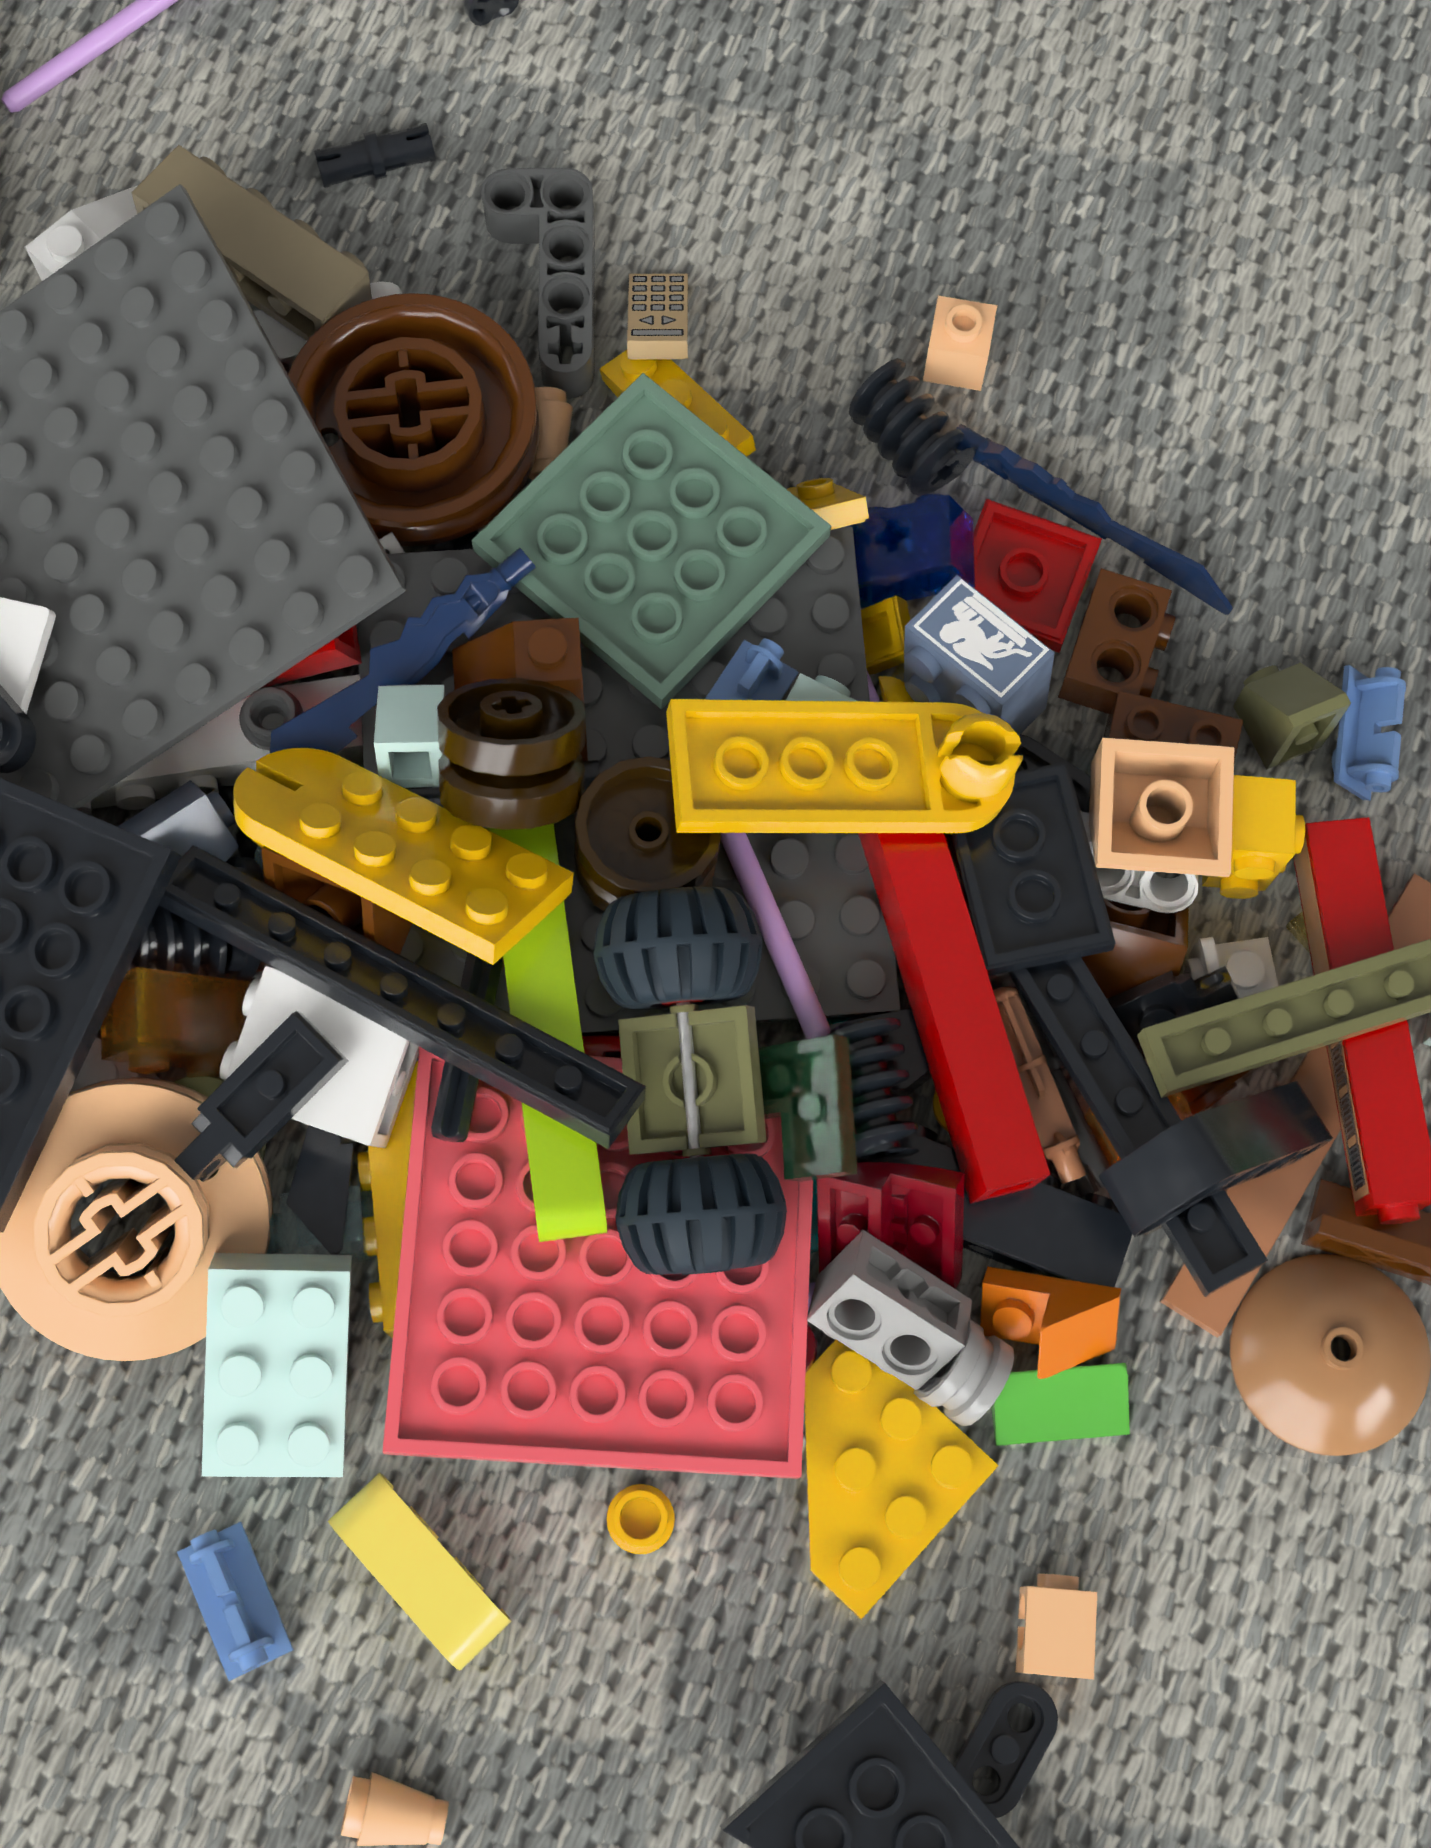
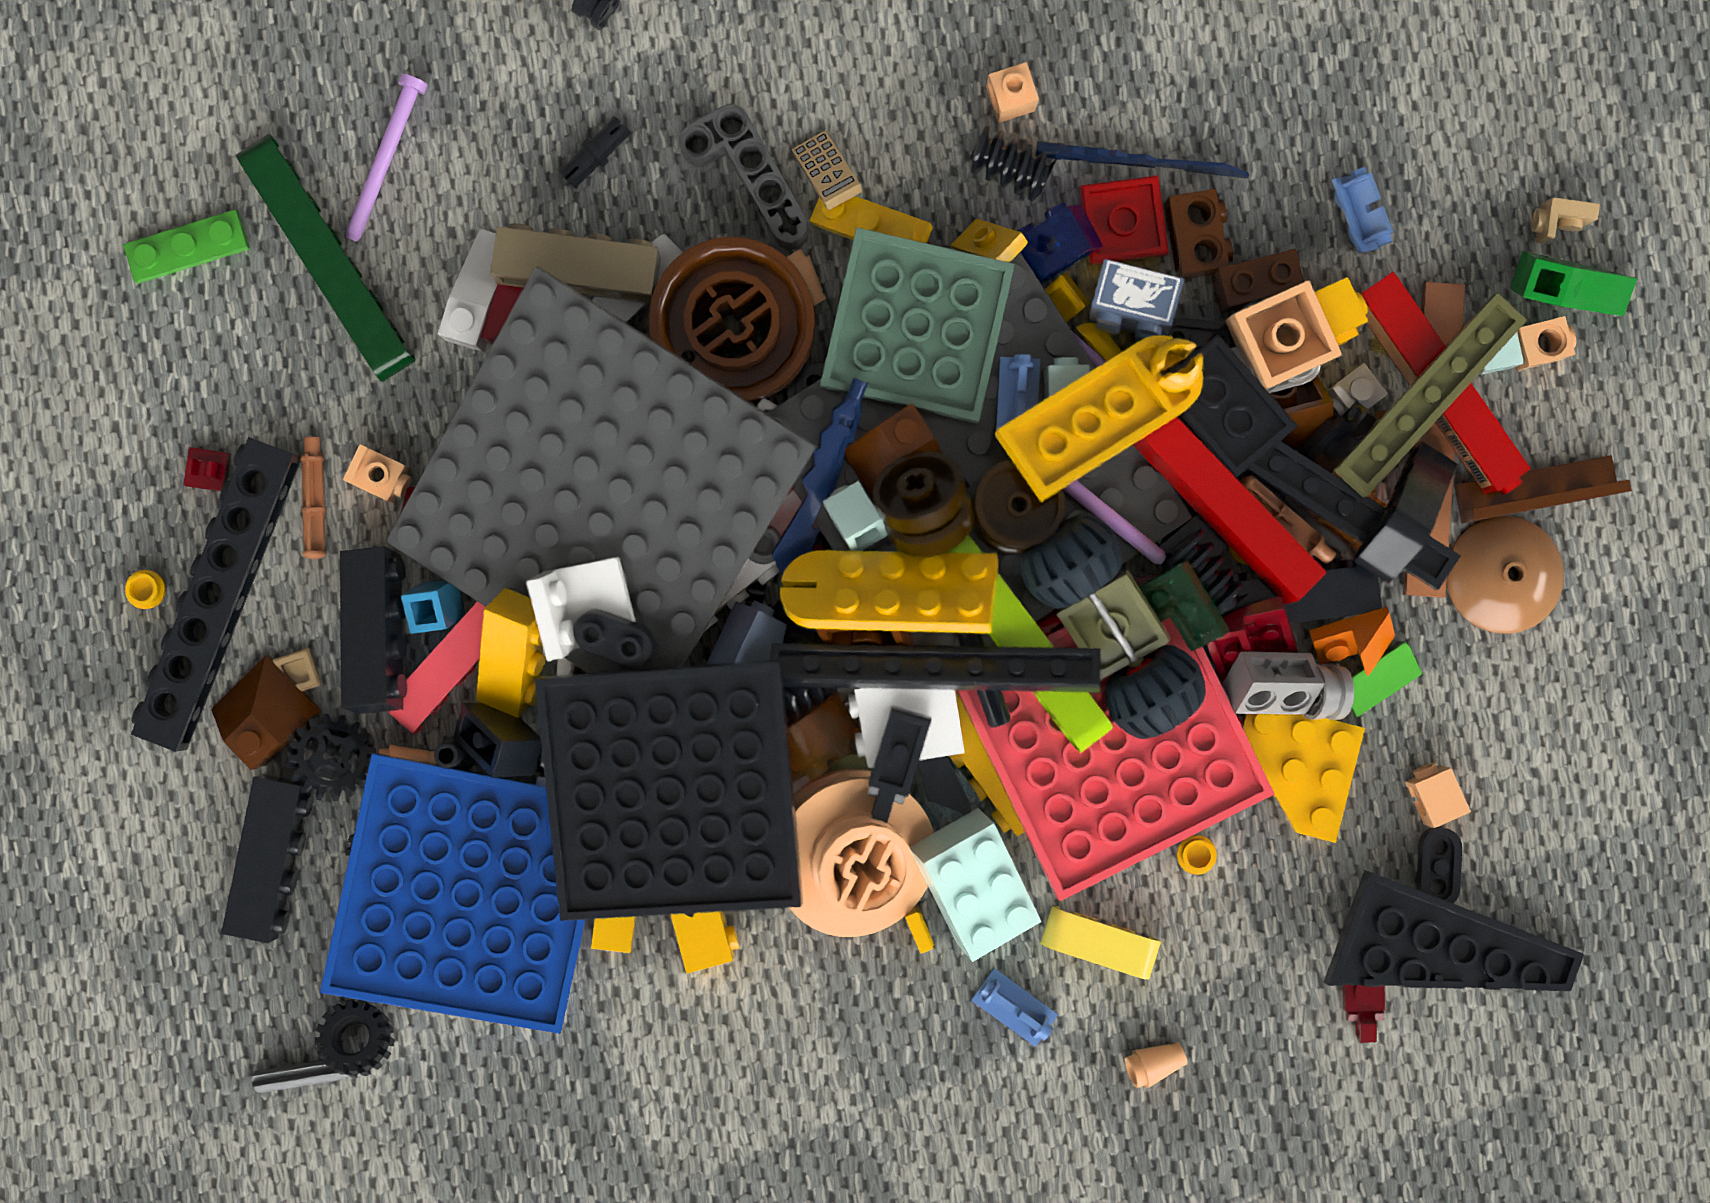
camera: 30 degrees left, 15 degrees up
(163, 1393) = (919, 930): none -> yellow tile
(1289, 711) = (1314, 224): olive slope -> none

